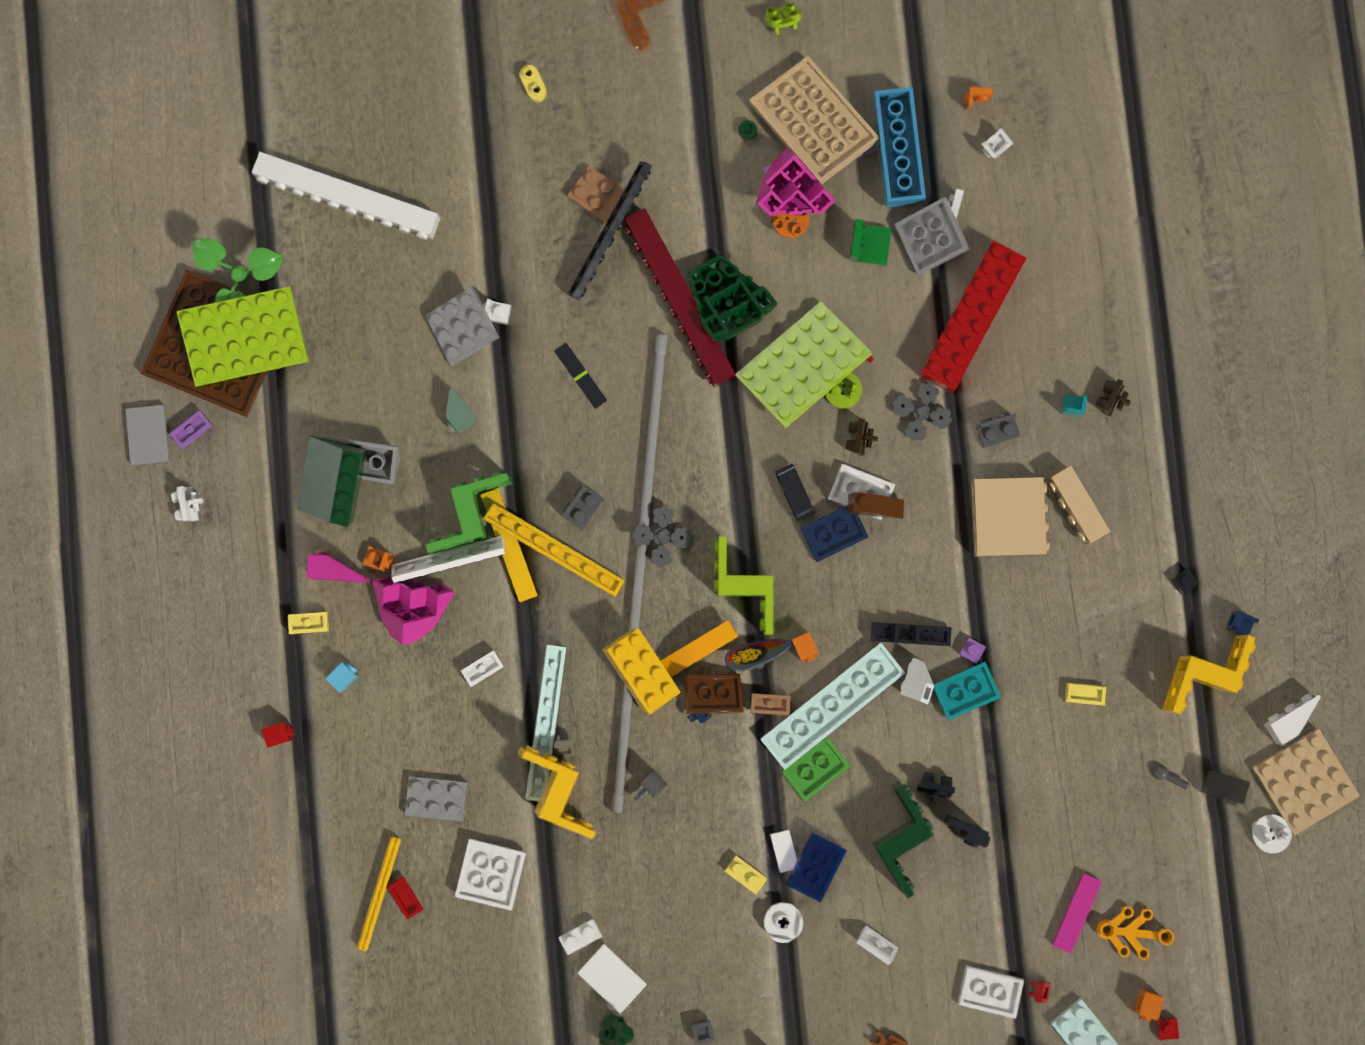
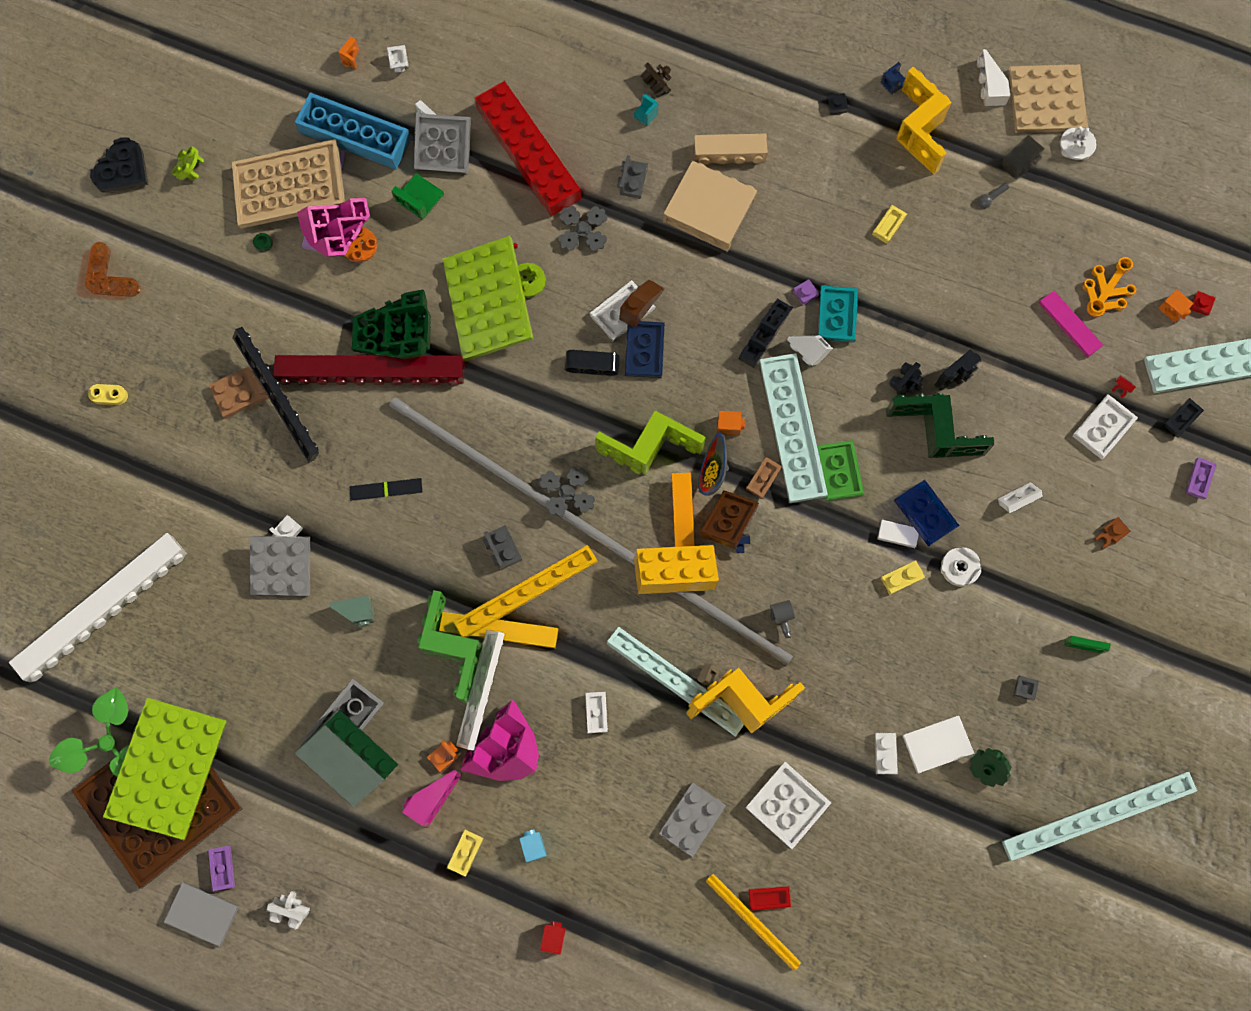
camera: 60 degrees left, 10 degrees down
(862, 438) = (581, 293): dark brown hips -> none

